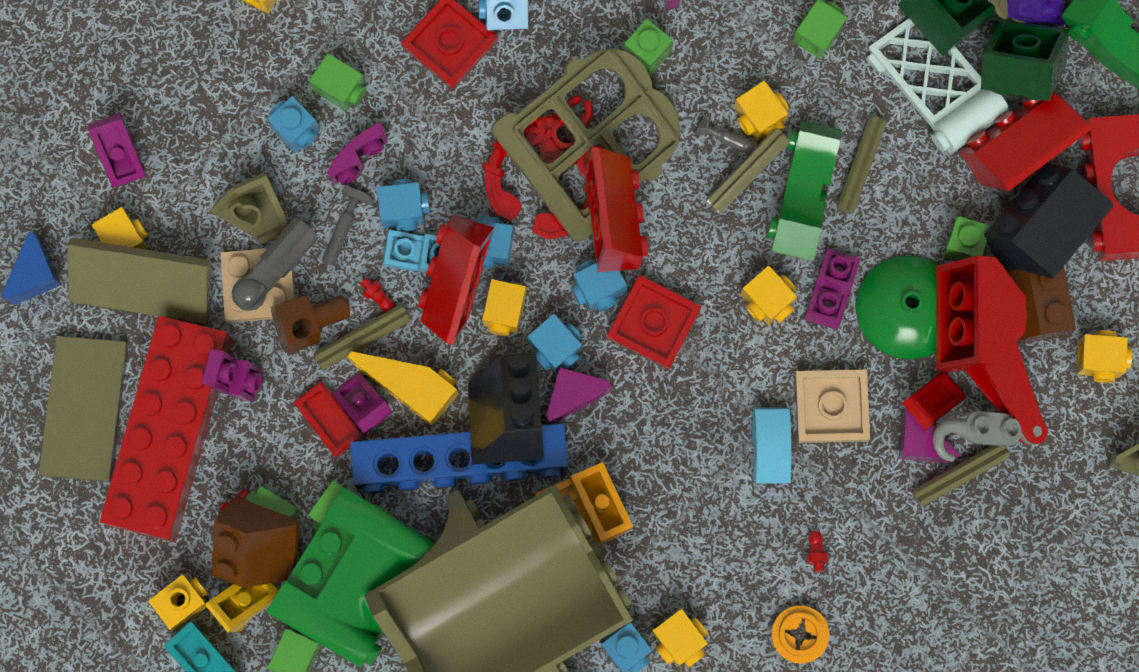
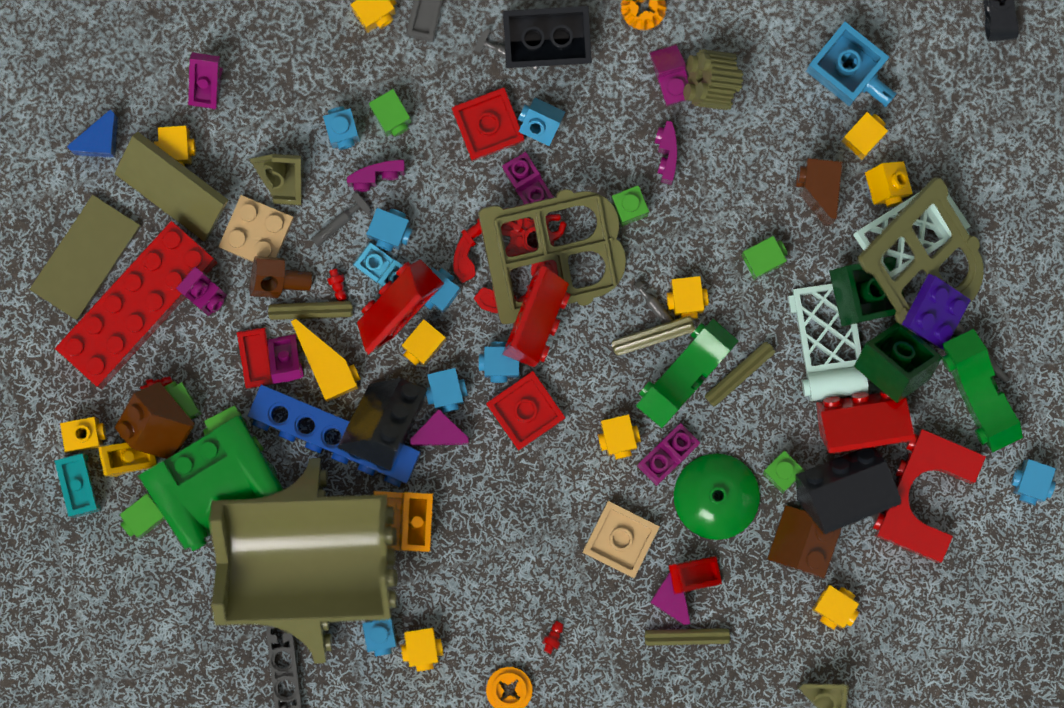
camera: 25 degrees right, 5 degrees up
(276, 262) = (275, 225): dark grey piece -> none
(520, 78) = (526, 179): none -> magenta slope
(772, 445) = (562, 544): medium azure slope -> none
(977, 332) = (752, 544): red slope -> none

